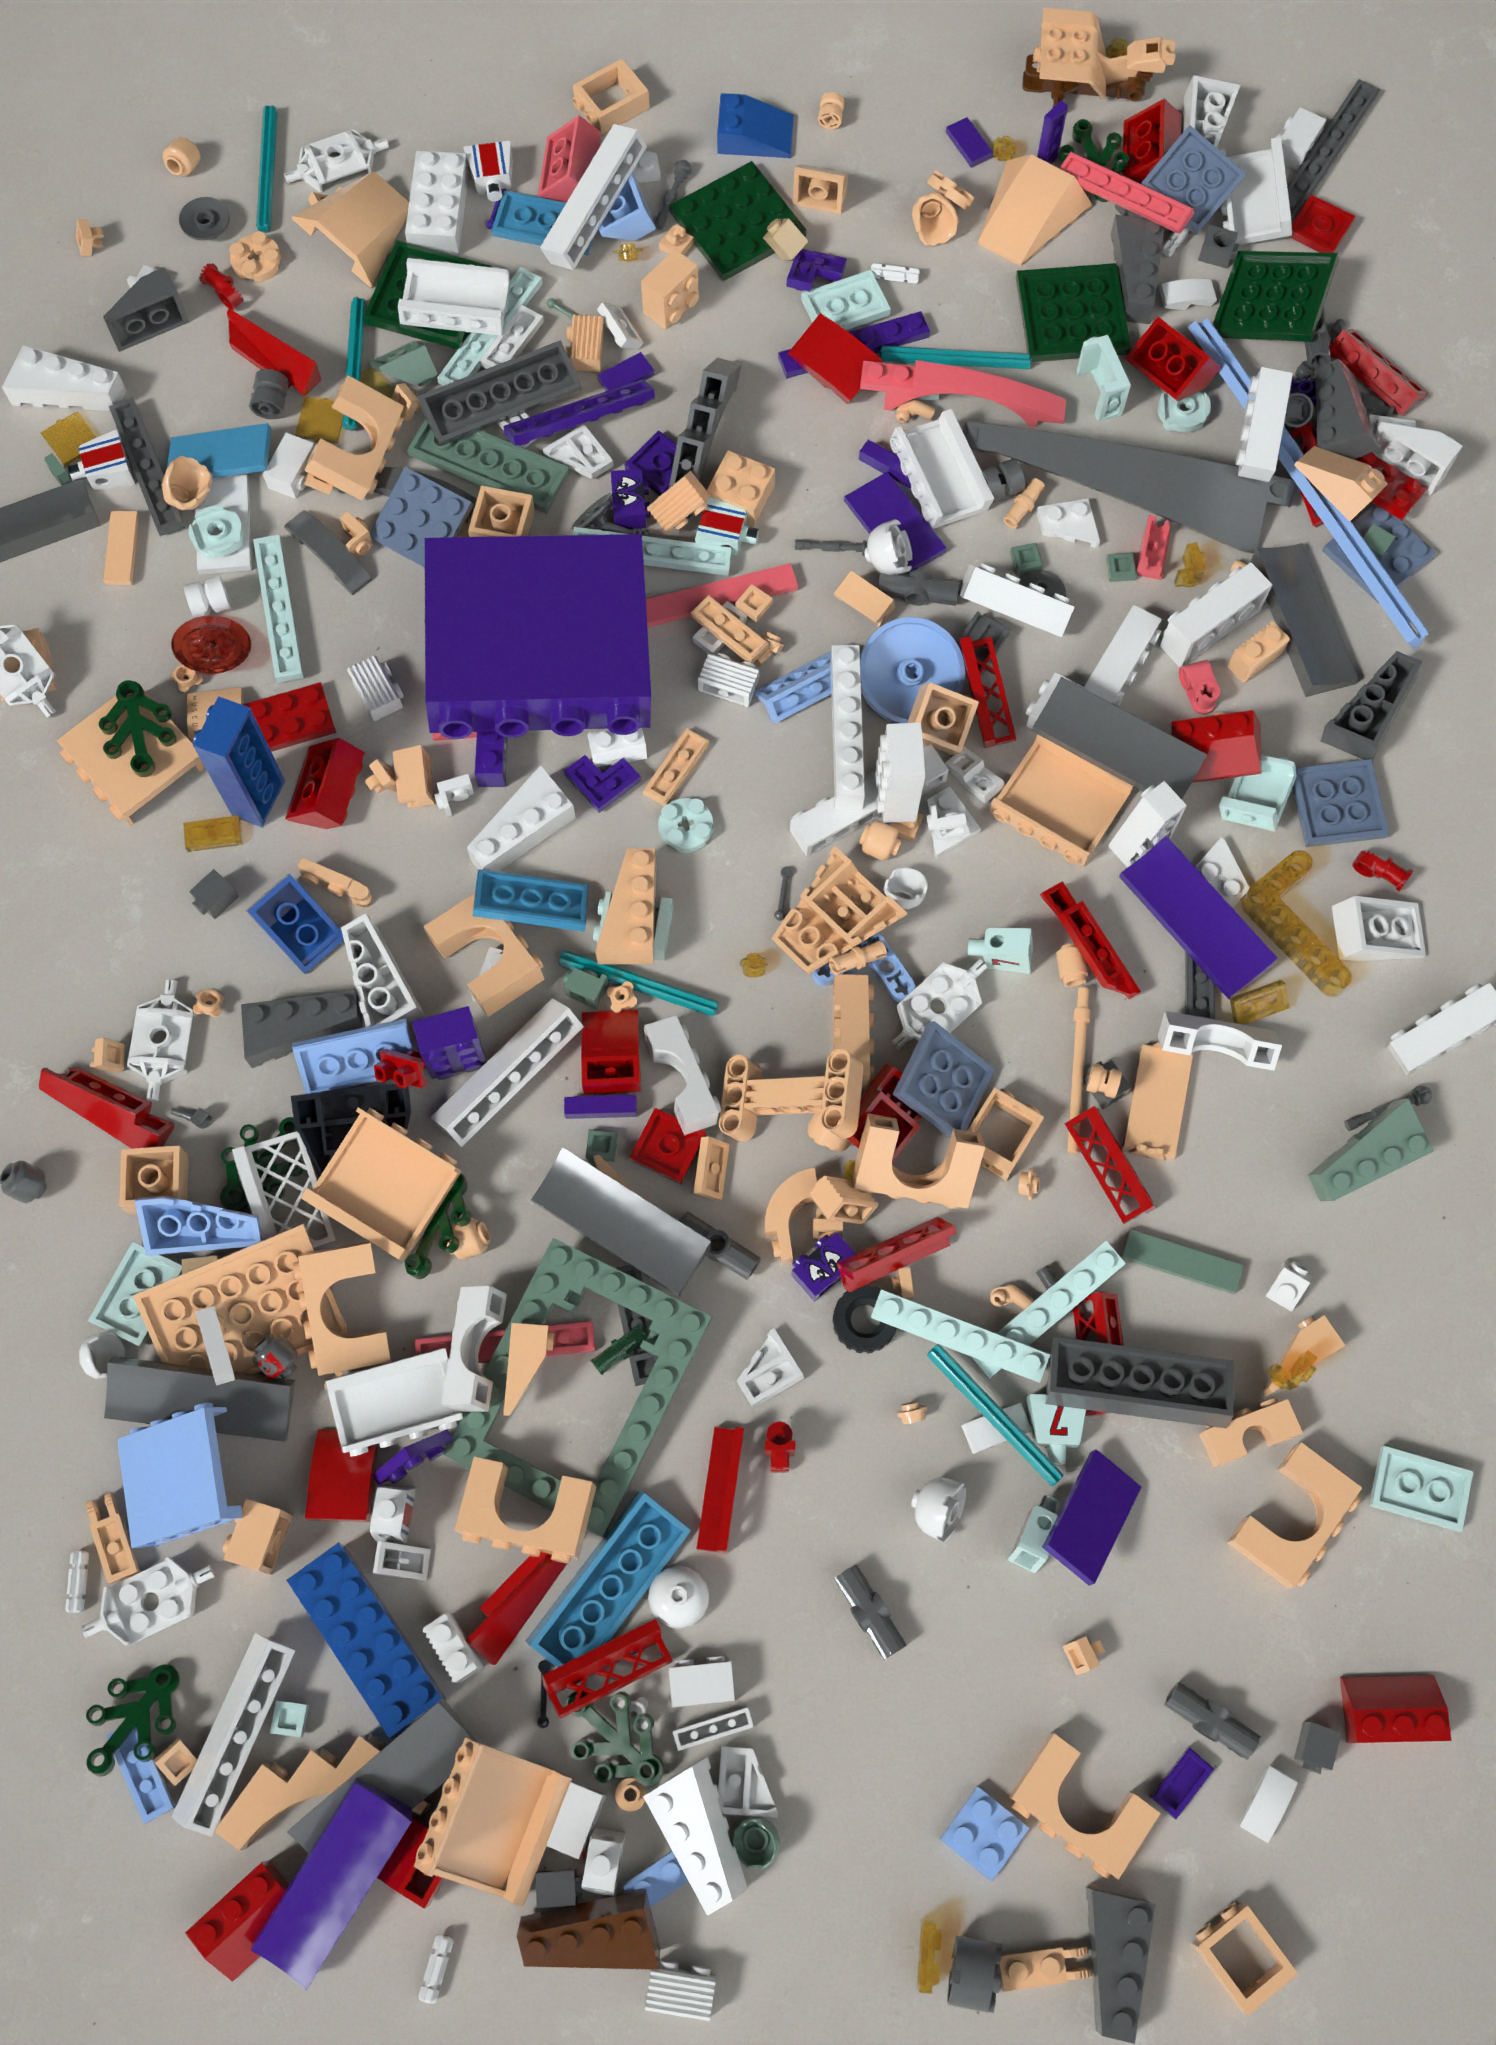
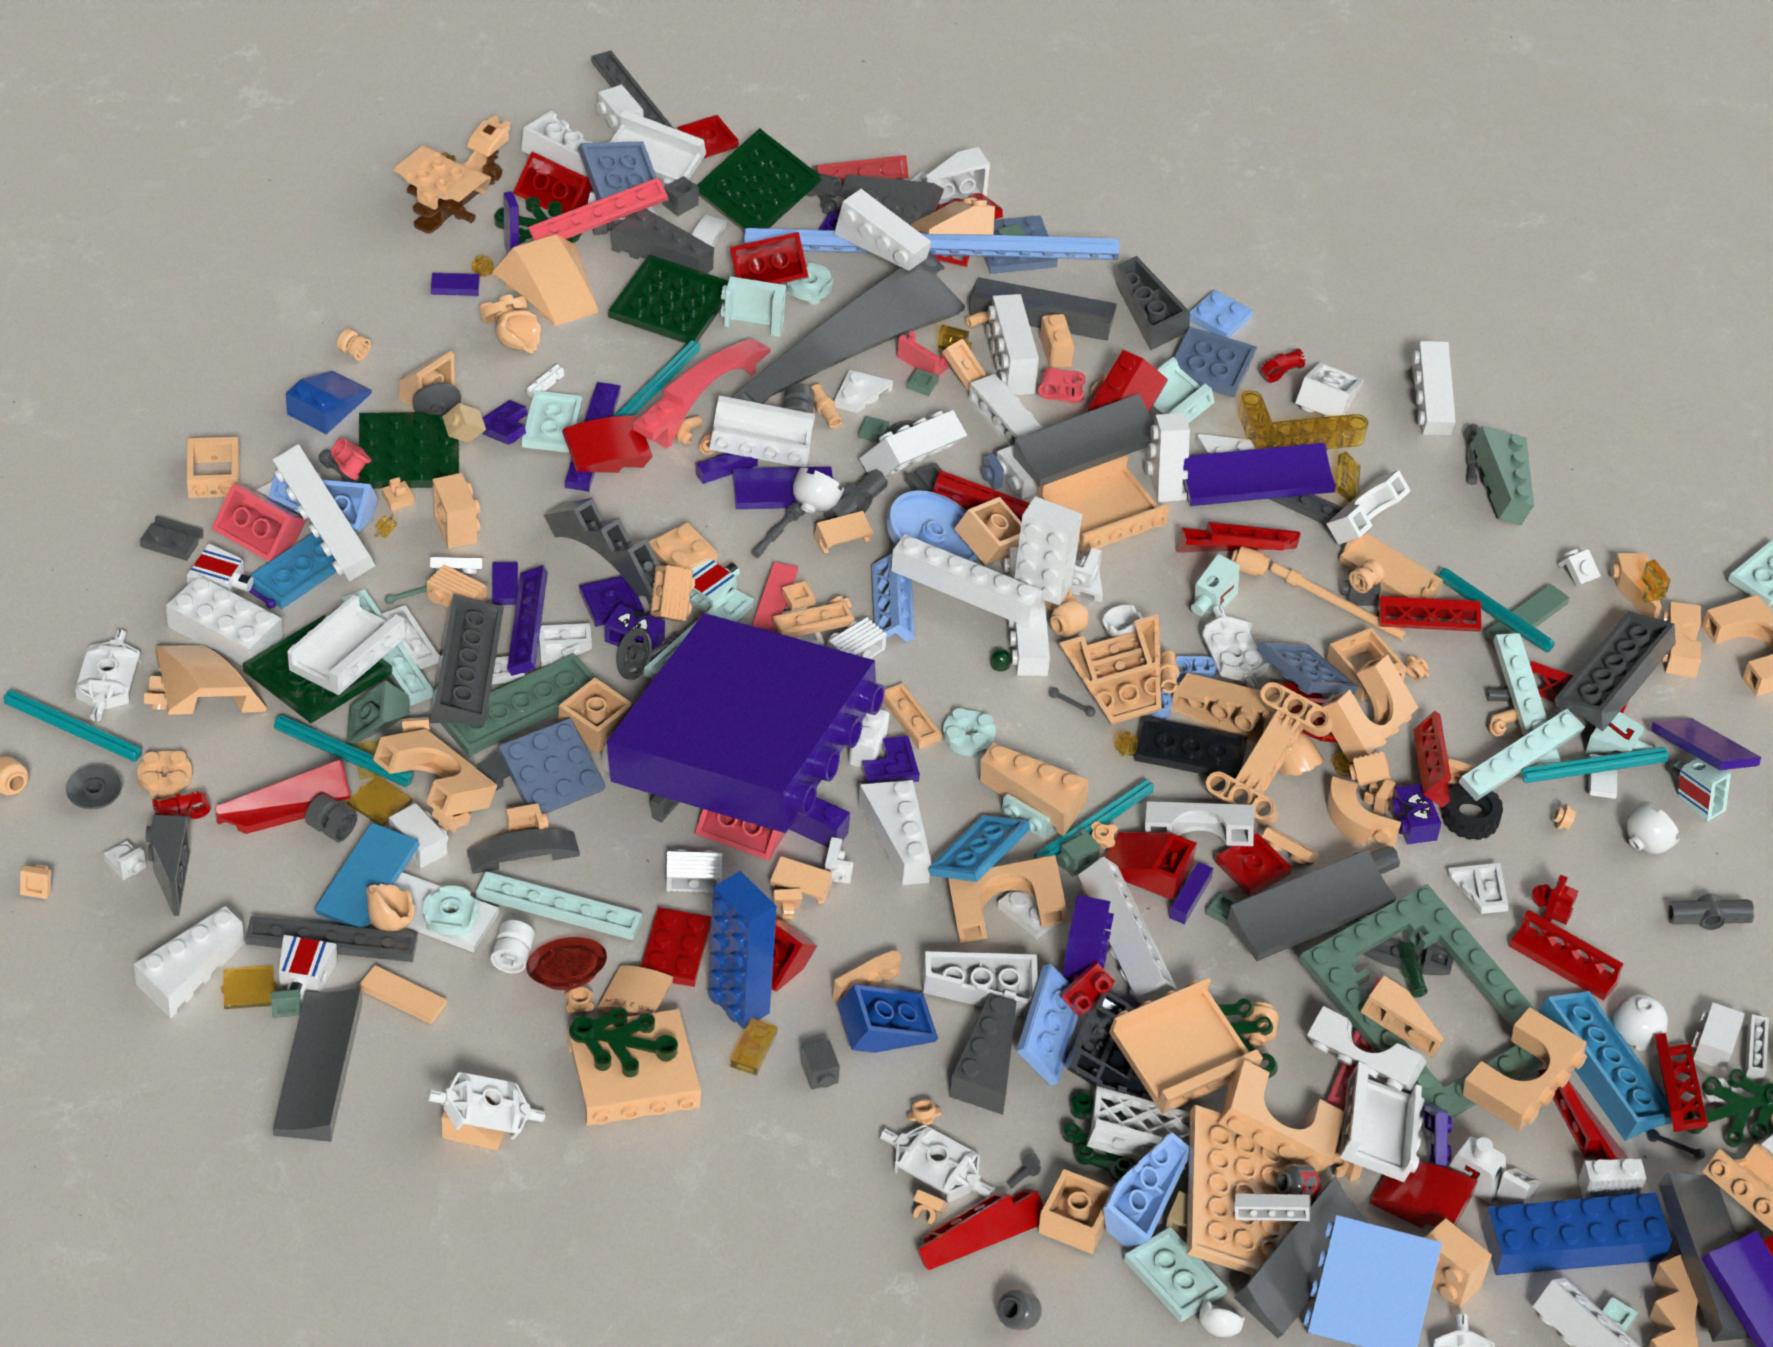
camera: 65 degrees left, 25 degrees down
(516, 116) = (171, 538): none -> dark grey plate
(683, 183) = (349, 457): none -> coral piece
(784, 1023) = (1190, 748): none -> black plate
(790, 810) = (1000, 660): none -> dark green hinge
(796, 204) = (436, 398): none -> dark grey dish
(1033, 682) = (993, 471): none -> sand blue plate
(1160, 588) = (964, 363): none -> light nougat plate
(1160, 1227) = (1497, 610): none -> teal axle
(1419, 780) = (1220, 314): none -> light blue plate

